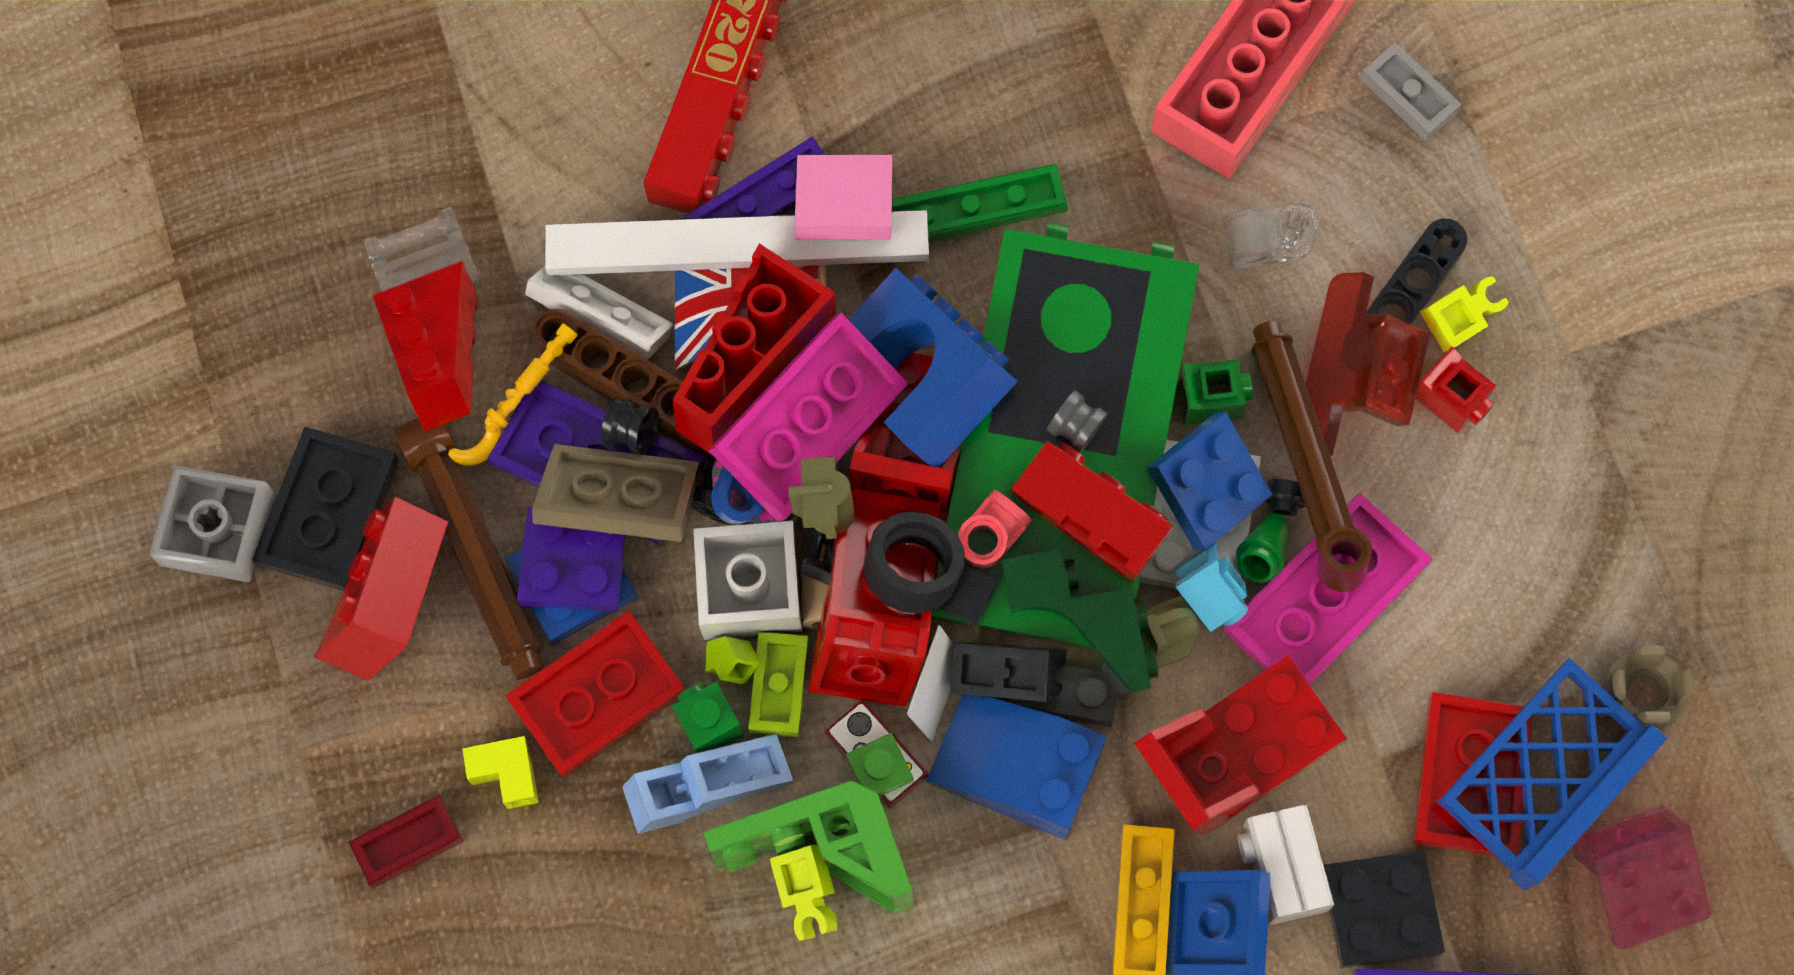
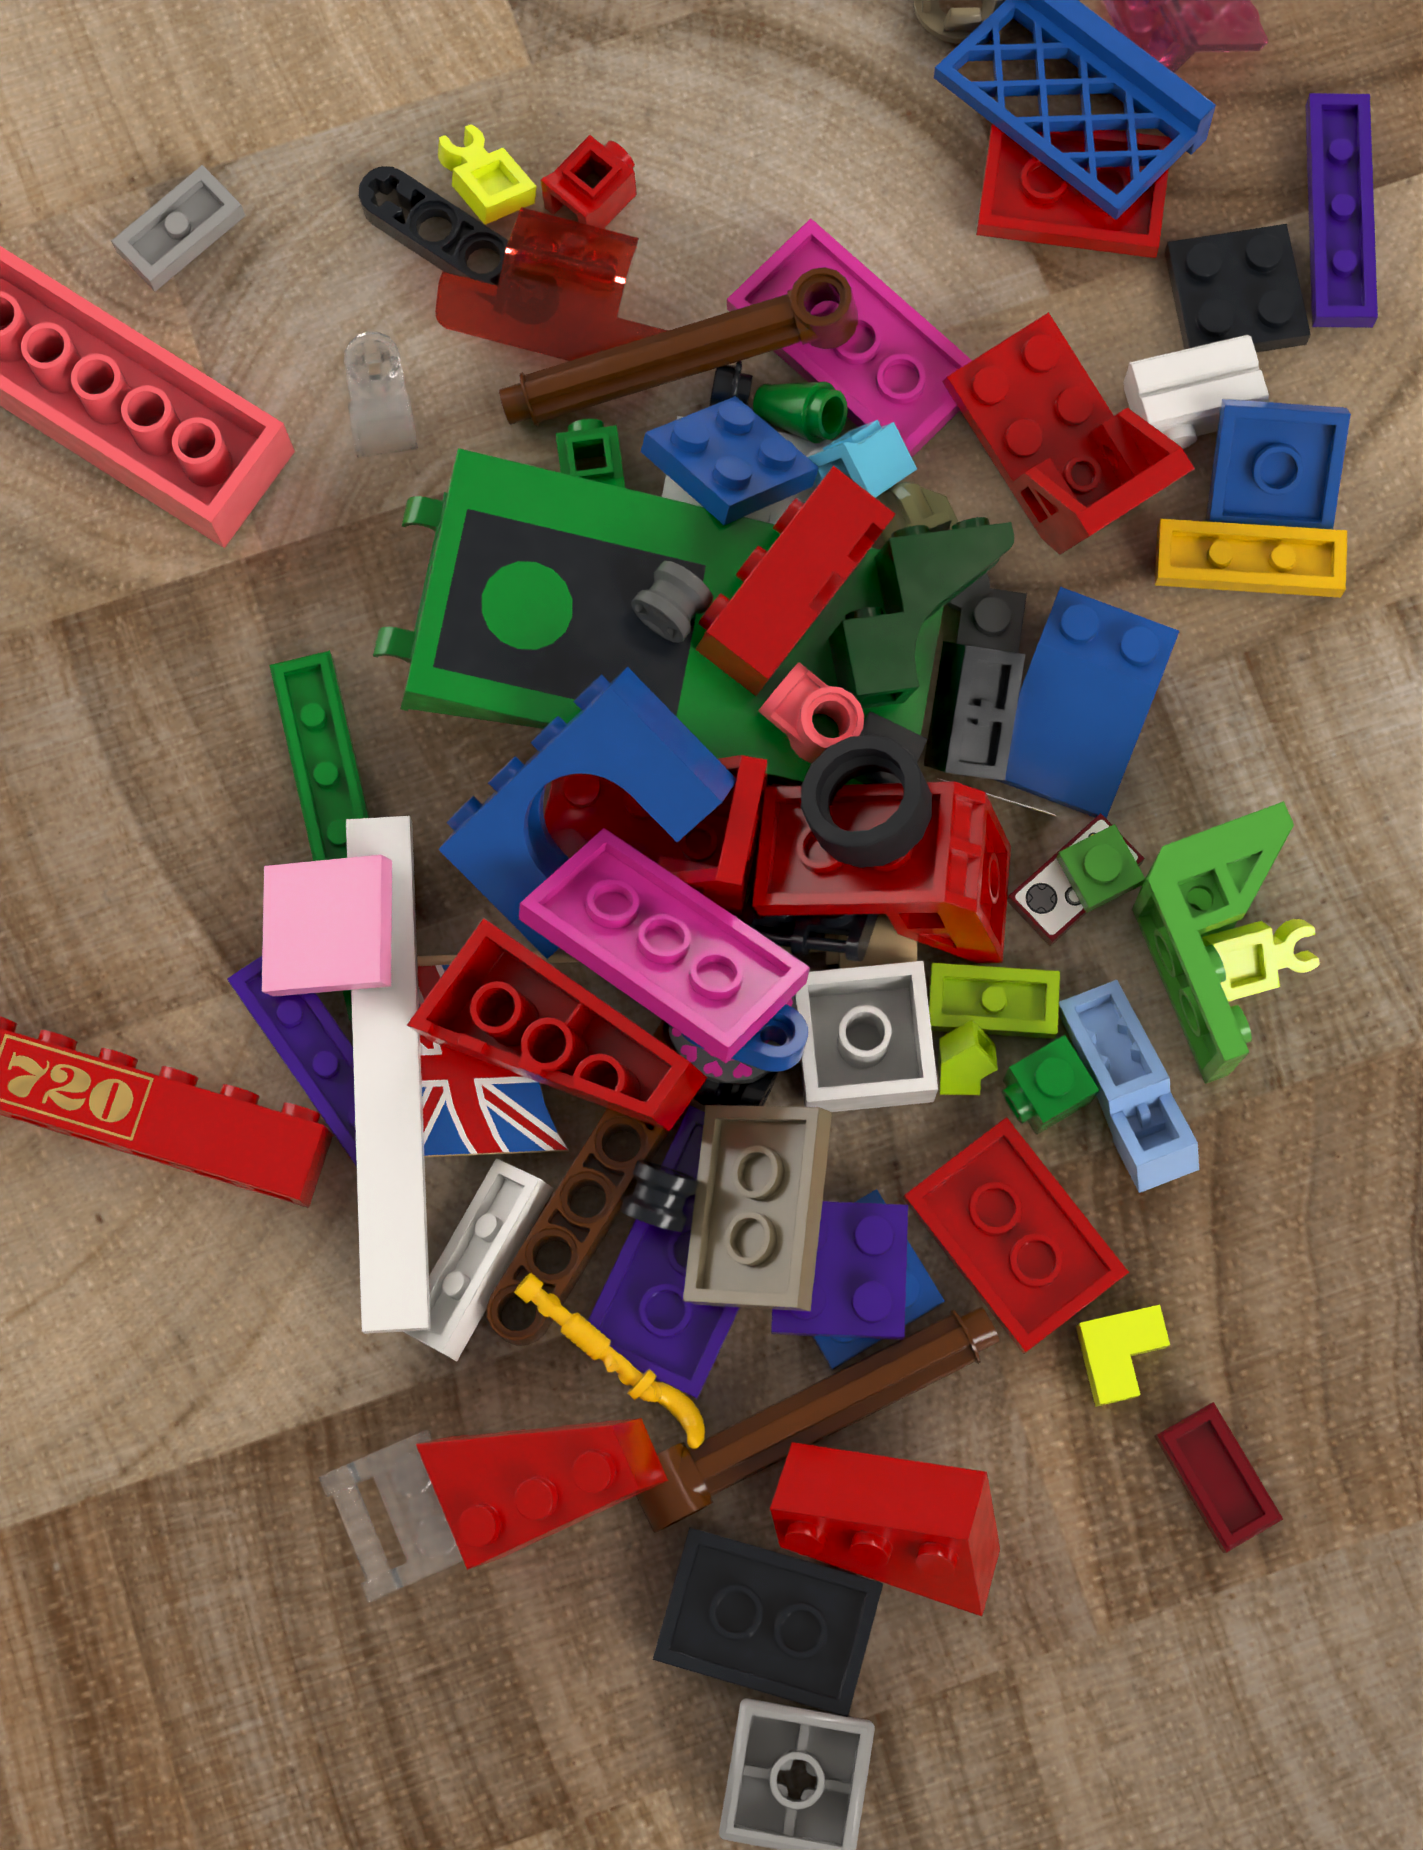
camera: 90 degrees left, 5 degrees up
(823, 497) = (785, 911): olive piece -> none

